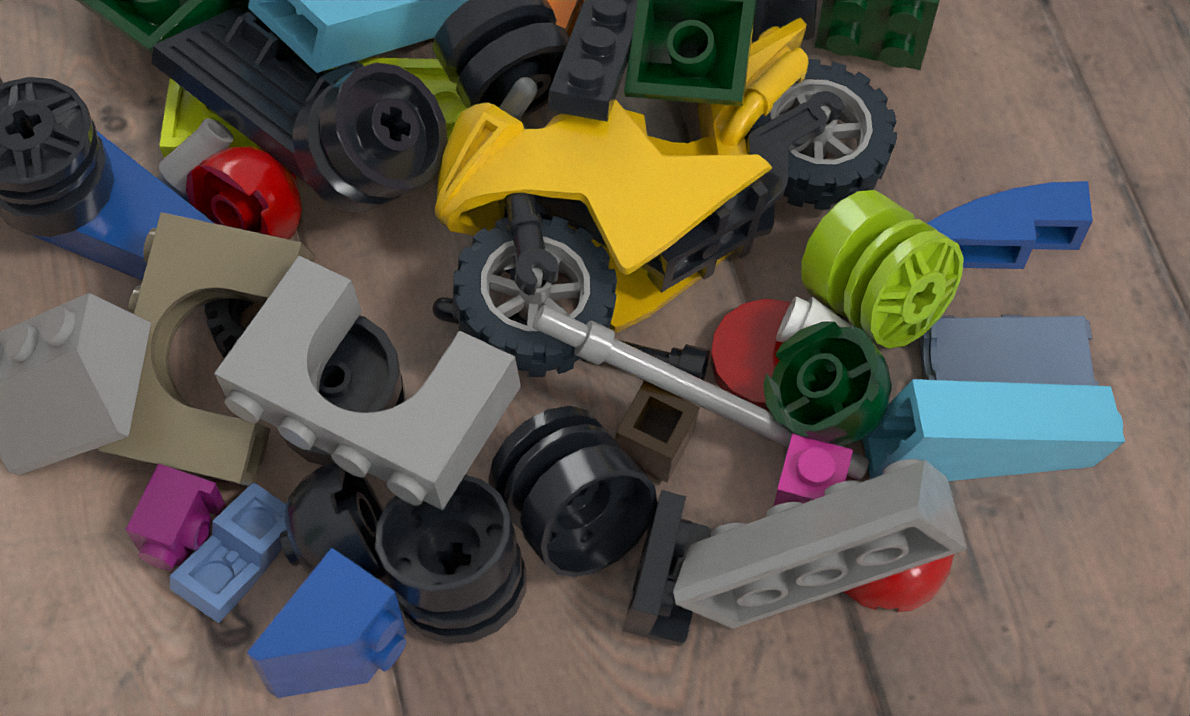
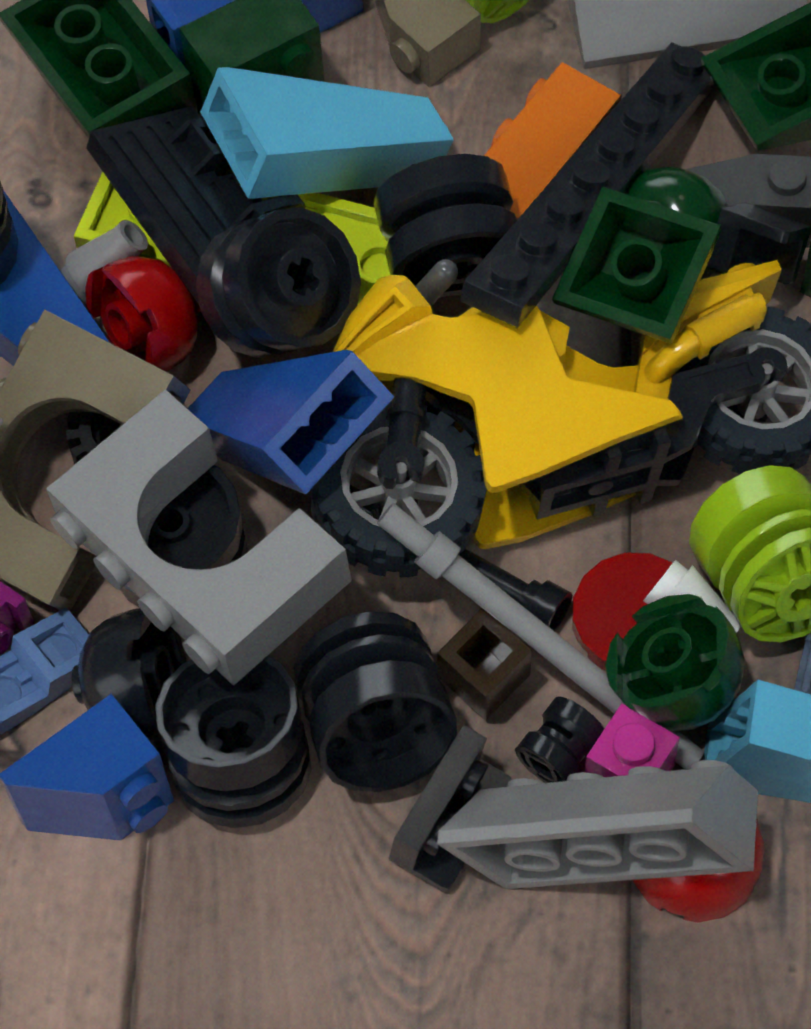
camera: 20 degrees right, 0 degrees up
(423, 251) = (291, 415): none -> blue slope
(744, 483) = (560, 742): none -> black wheel

